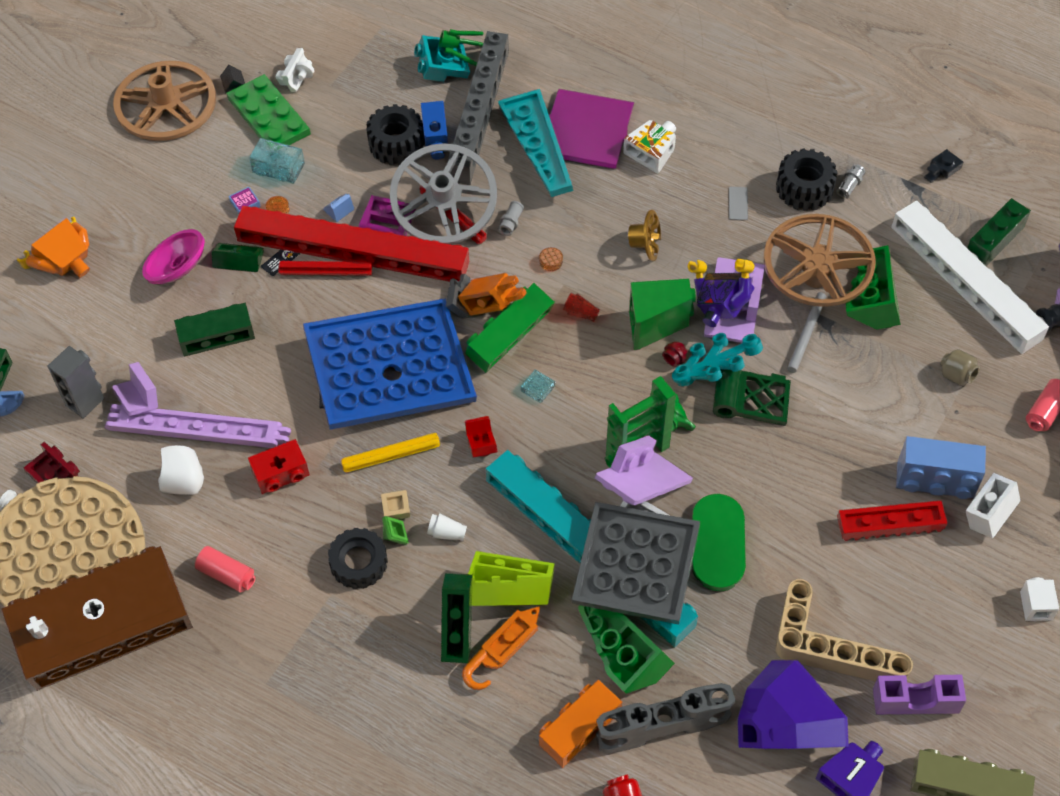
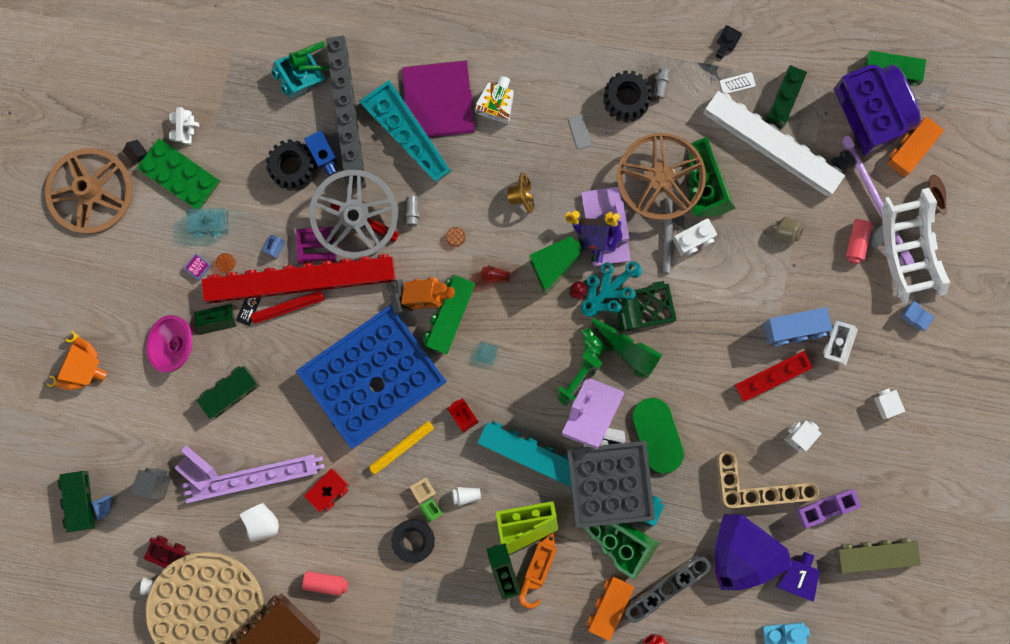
camera: 15 degrees left, 25 degrees up
(723, 435) = (637, 356): none -> green wedge
(839, 339) = (694, 237): none -> white brick
(910, 593) = (802, 435): none -> white brick
(945, 210) = (737, 83): none -> white sticker

